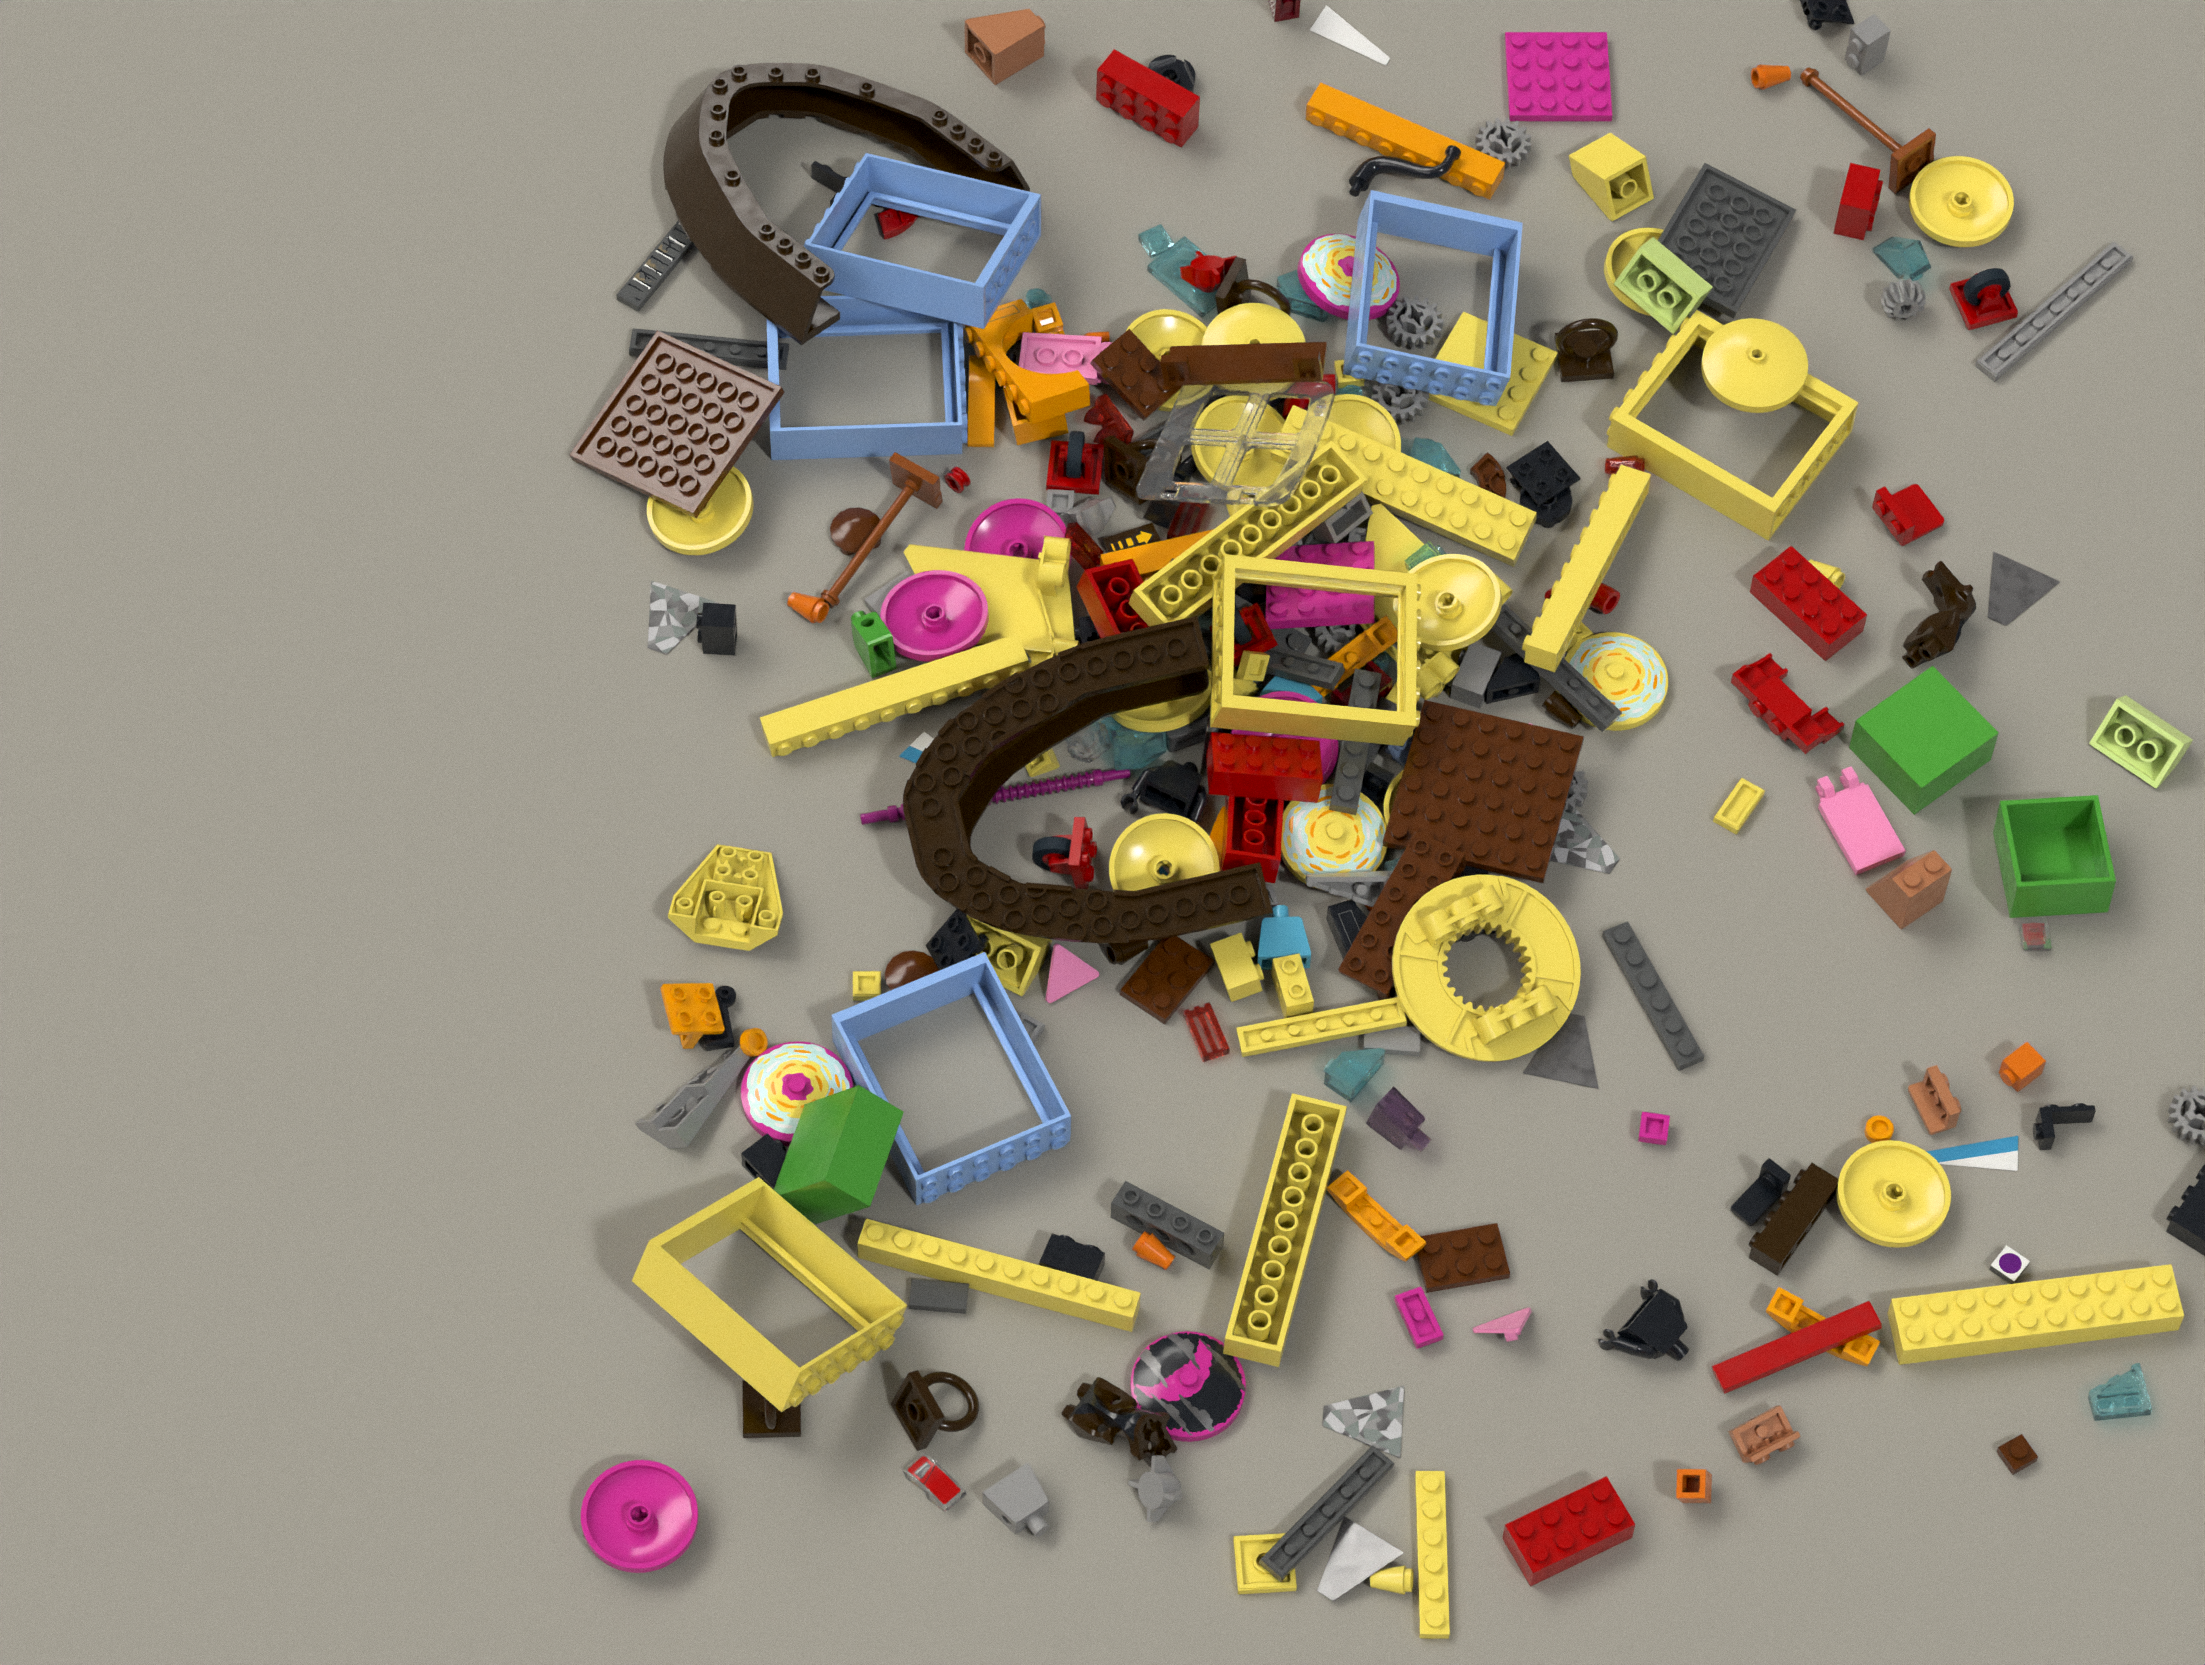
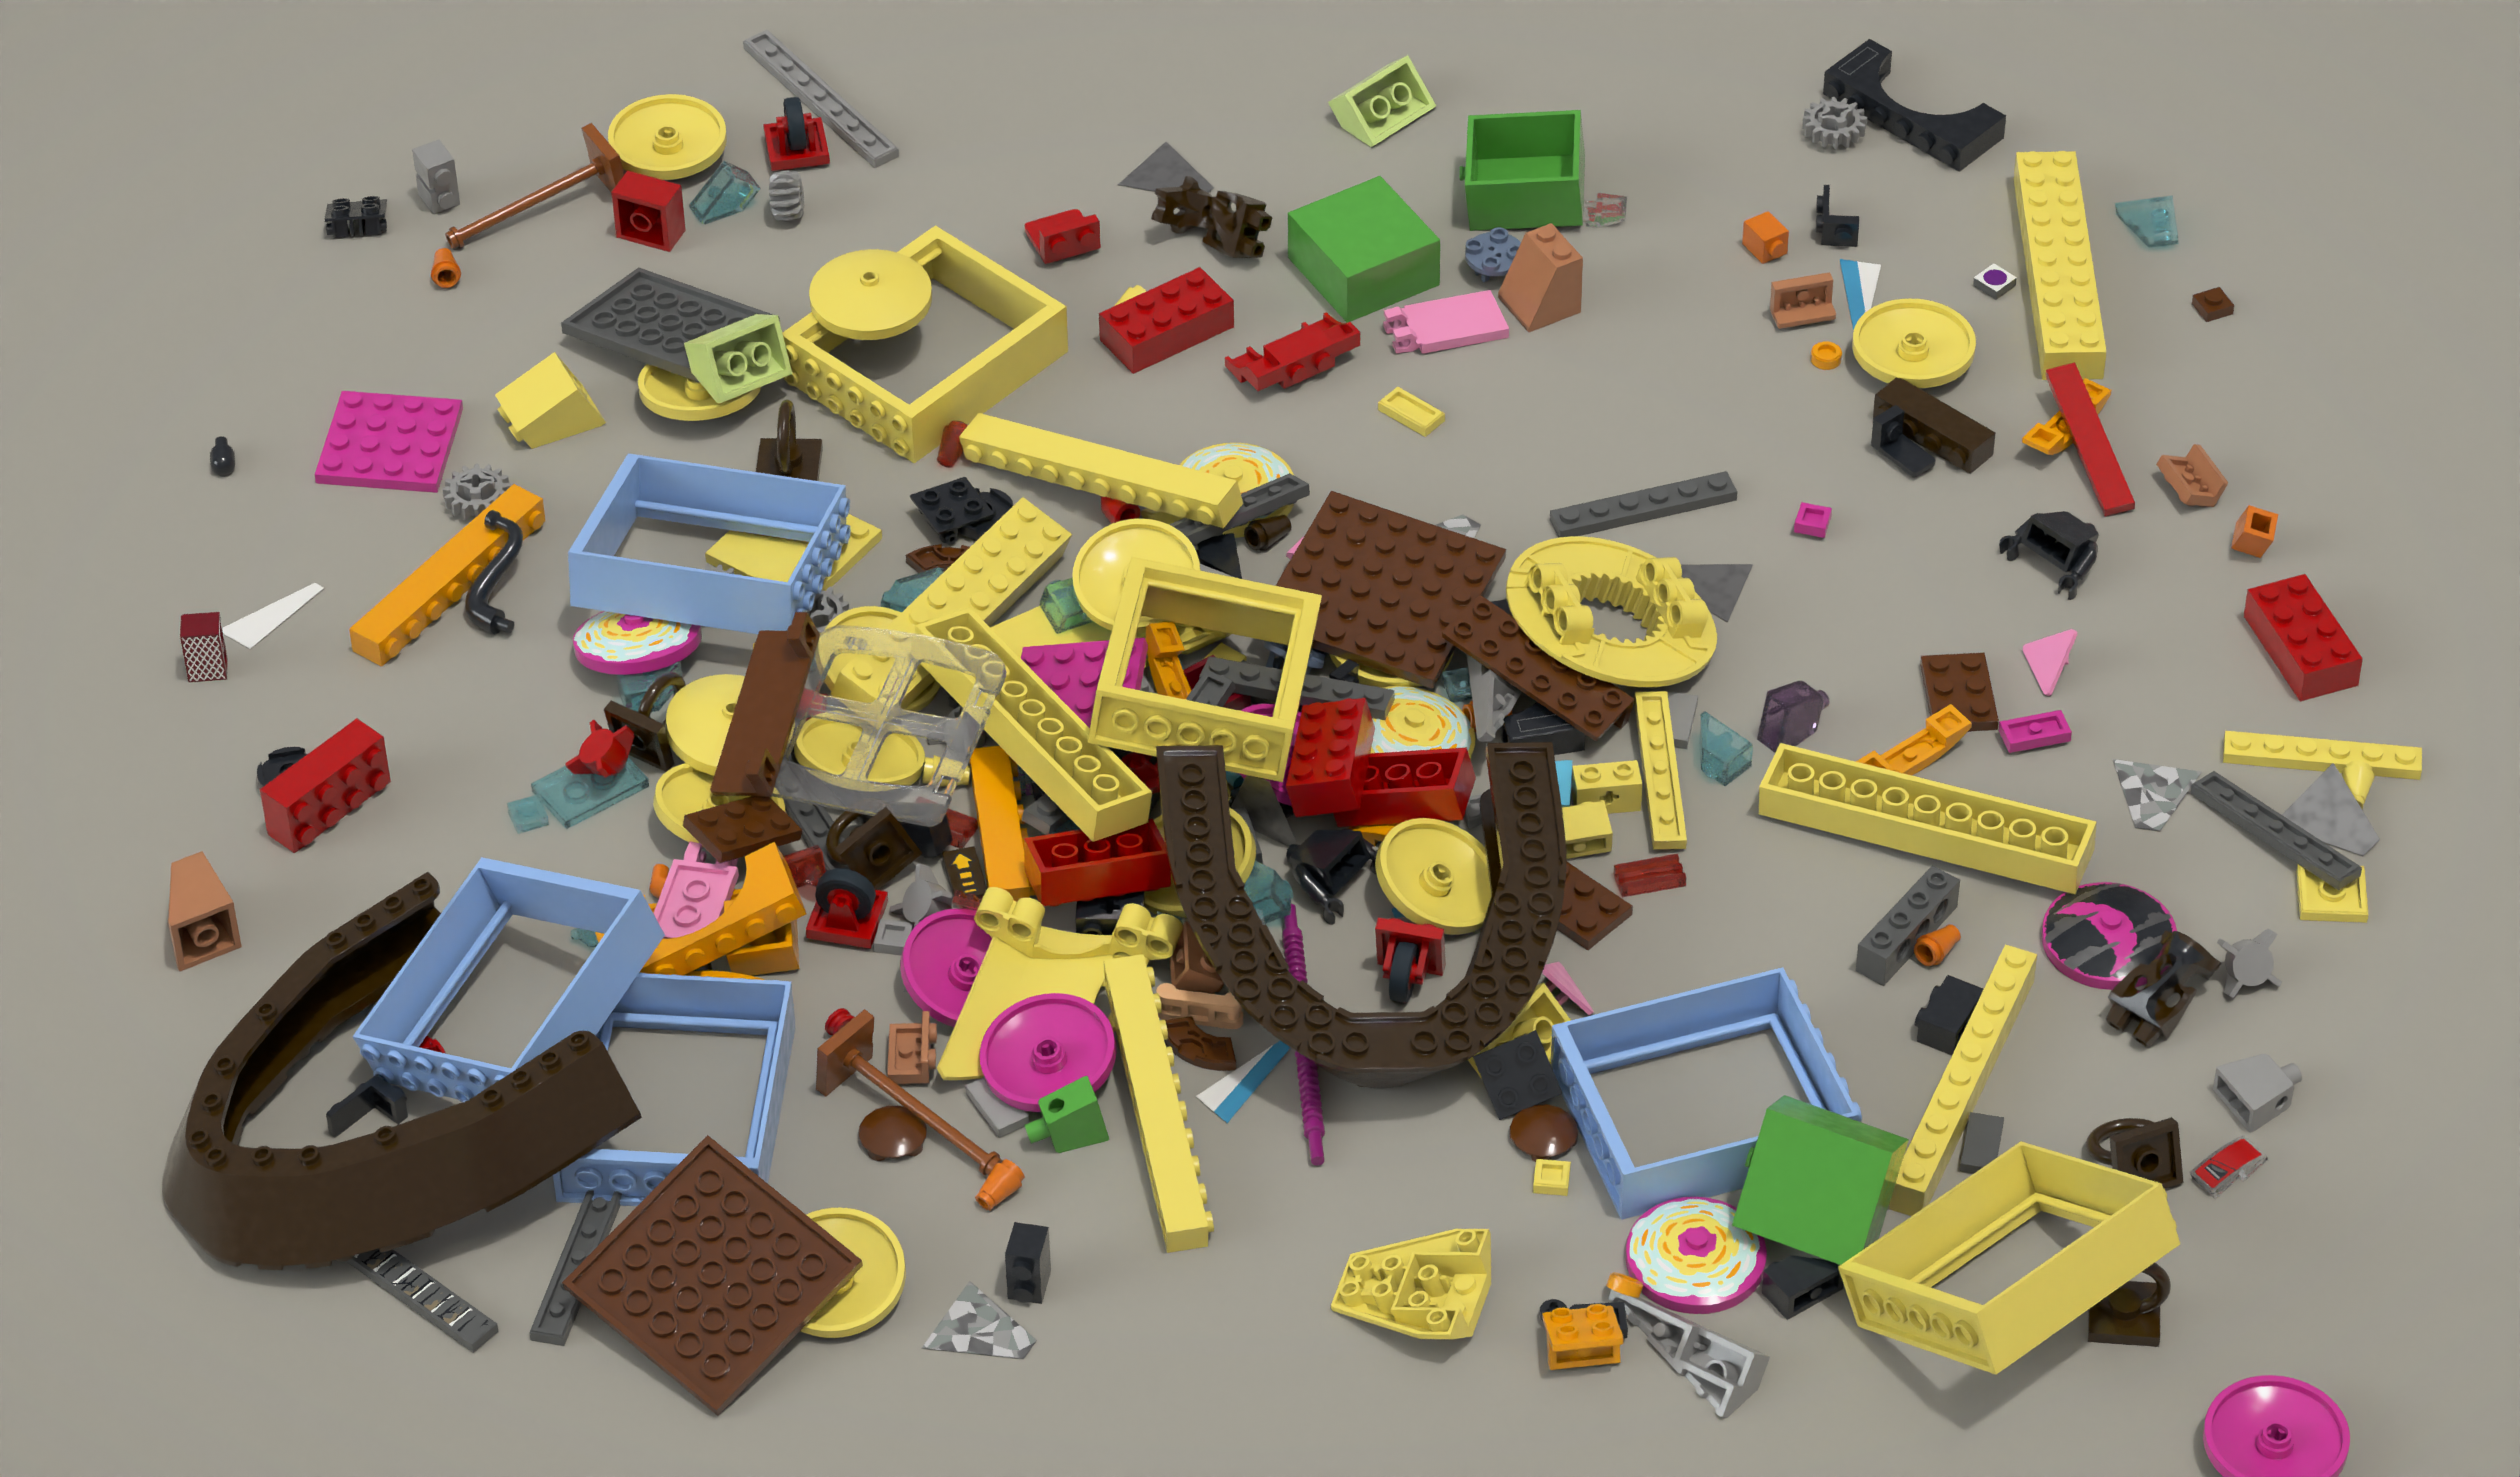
camera: 80 degrees left, 15 degrees down
(936, 528) = (910, 1051): none -> nougat bracket
(1937, 834) = (1491, 253): none -> sand blue plate

